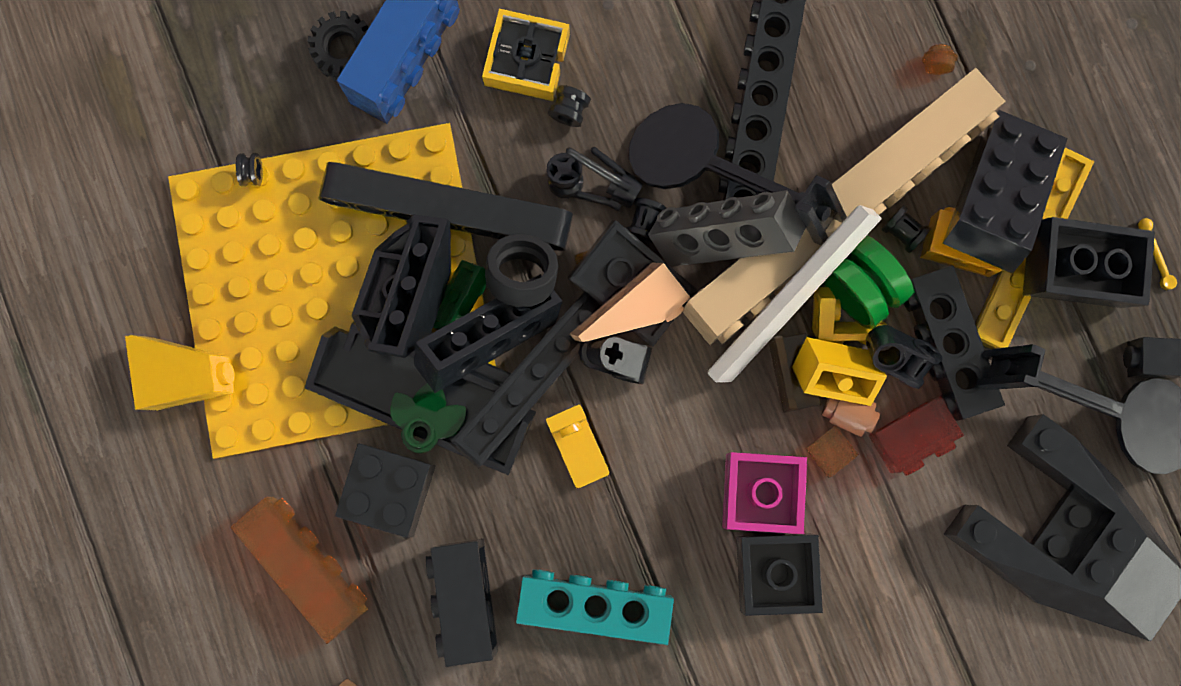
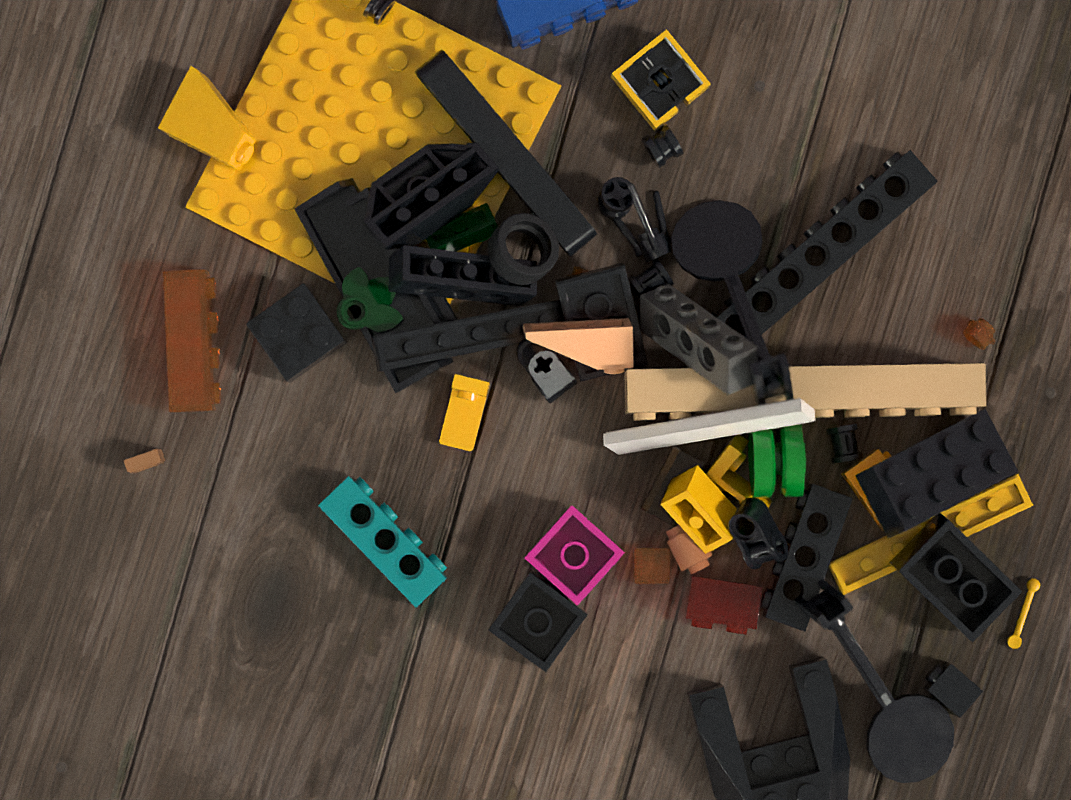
camera: 35 degrees right, 5 degrees up
(462, 603) = (291, 459): black brick -> none

